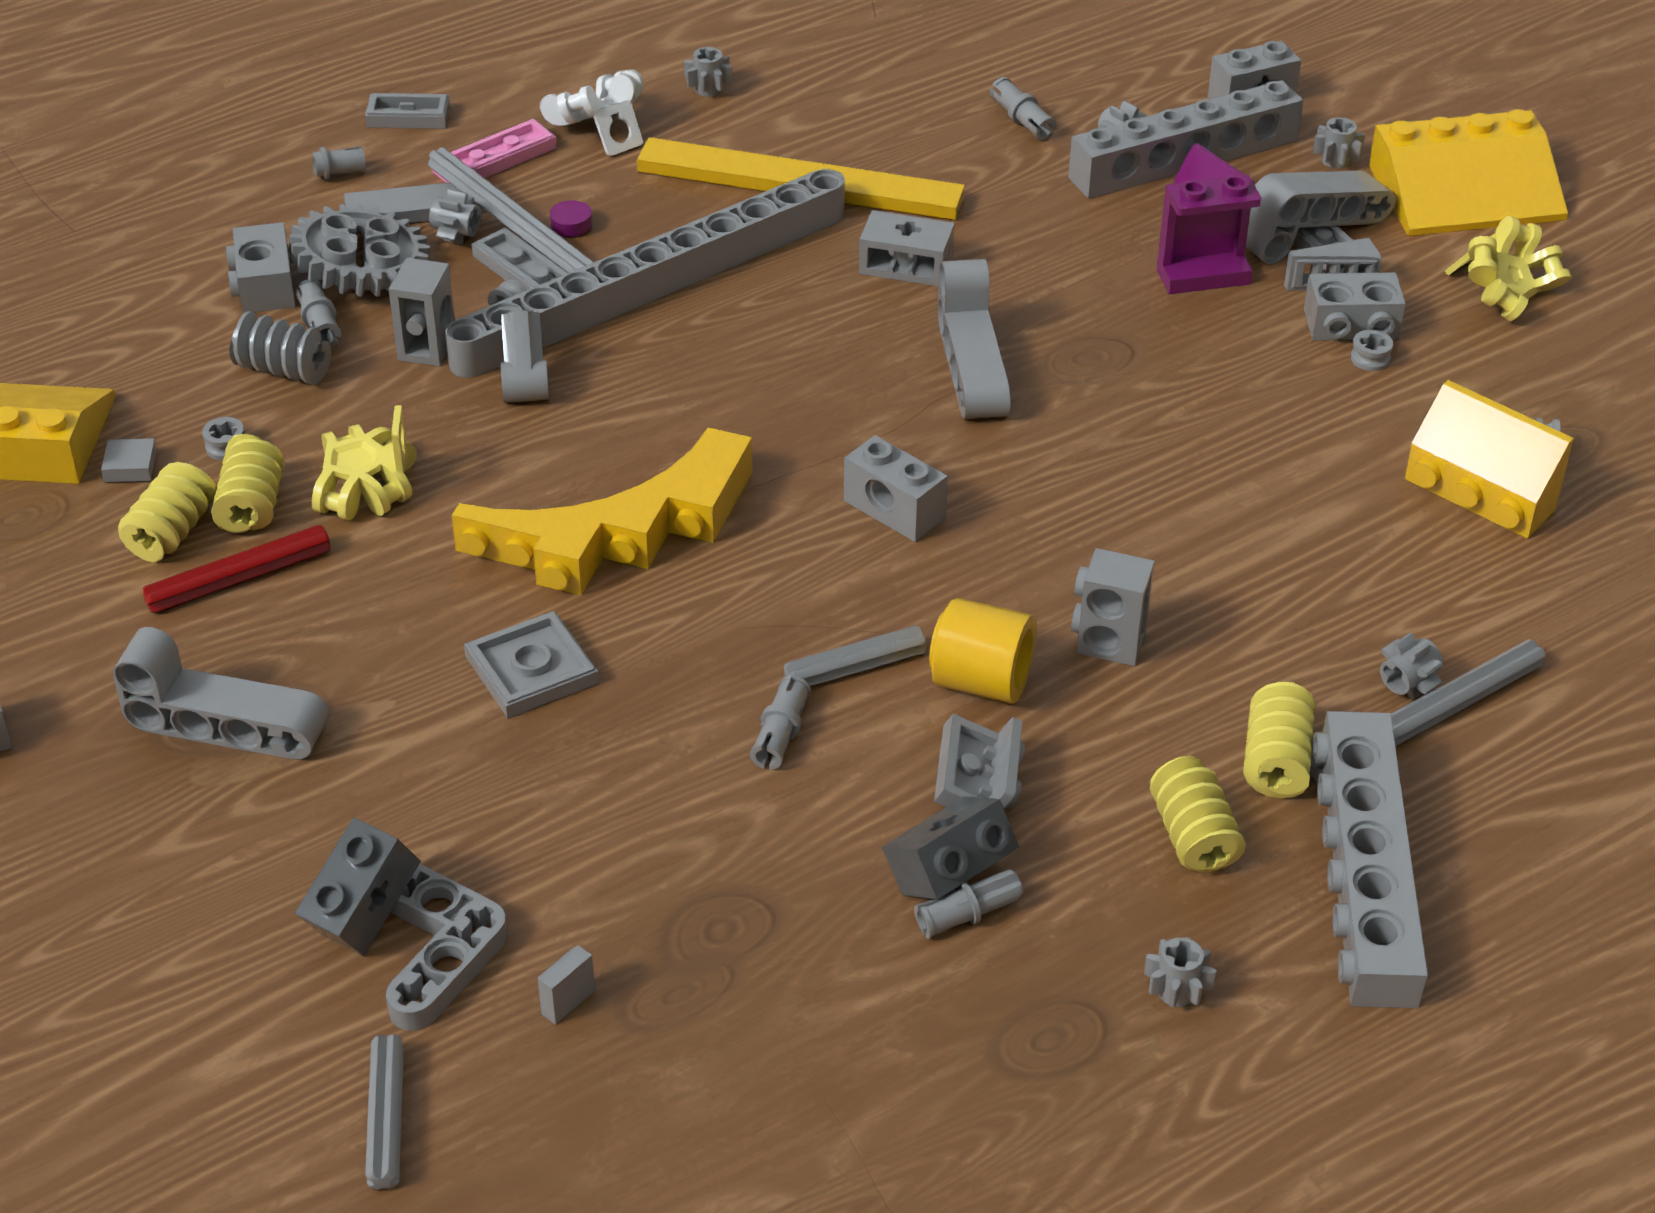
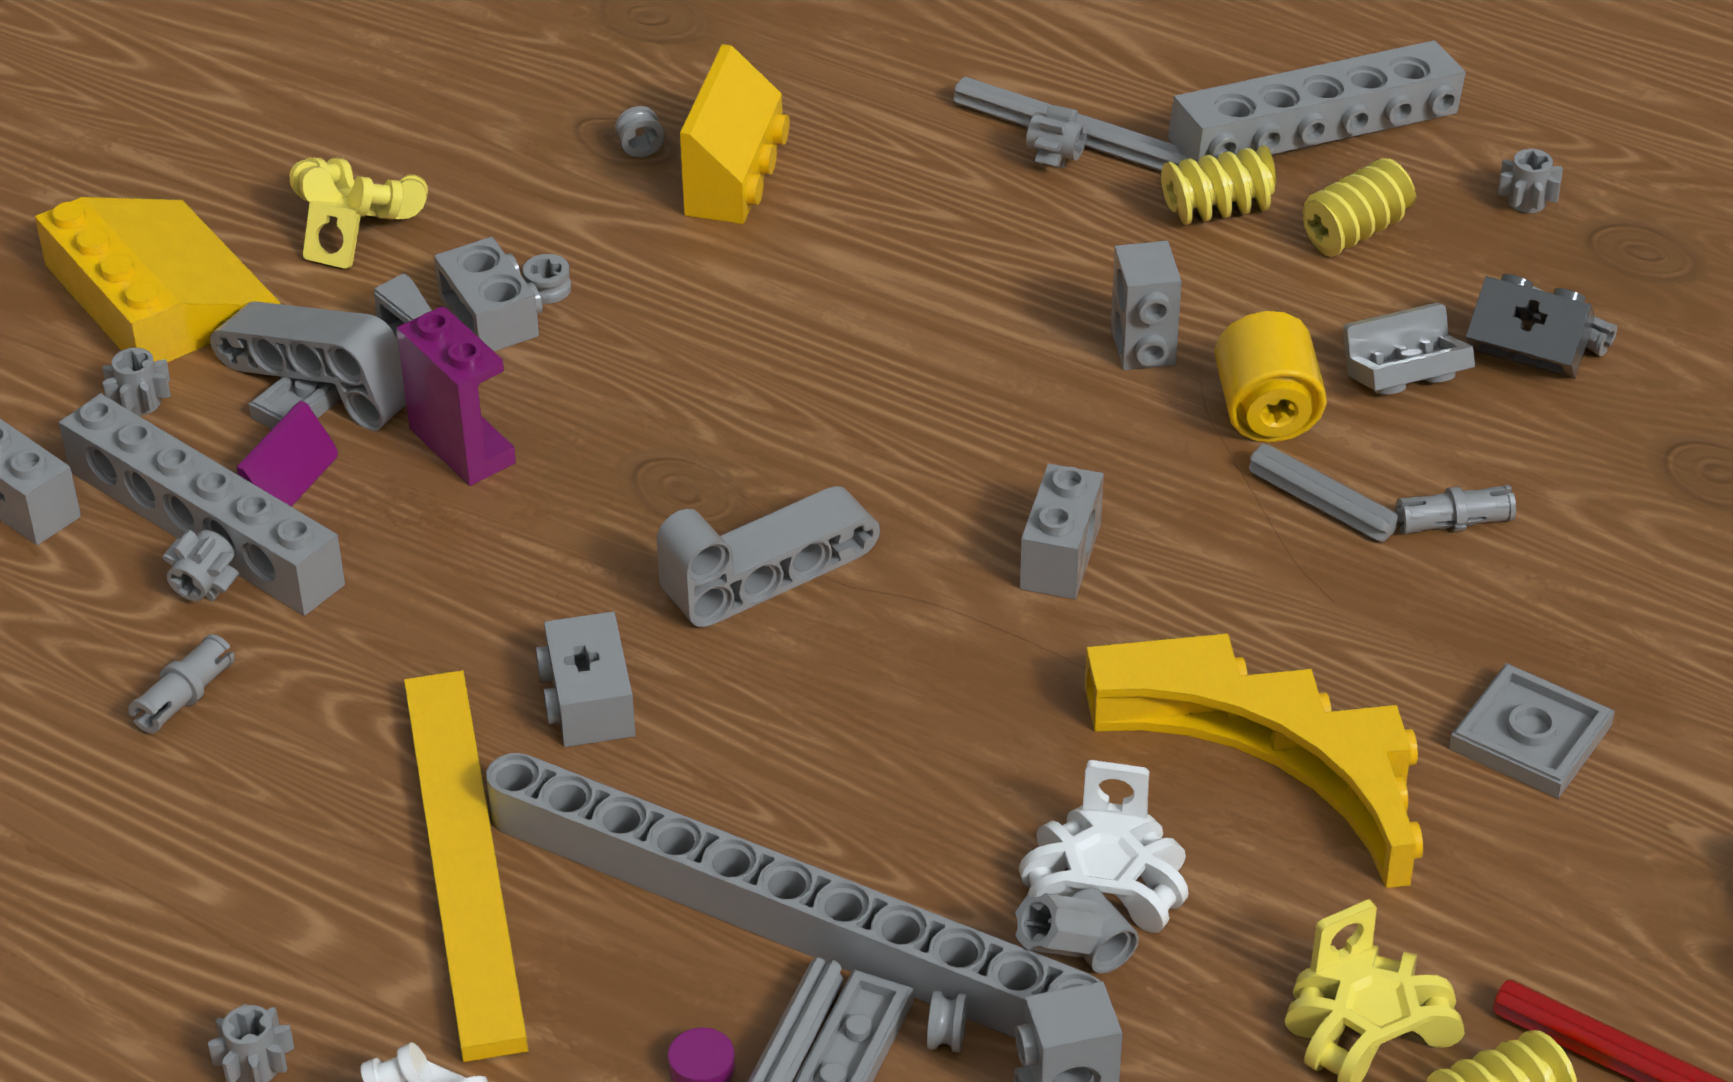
camera: 115 degrees left, 0 degrees up
(572, 391) = (1109, 850): none -> white piece

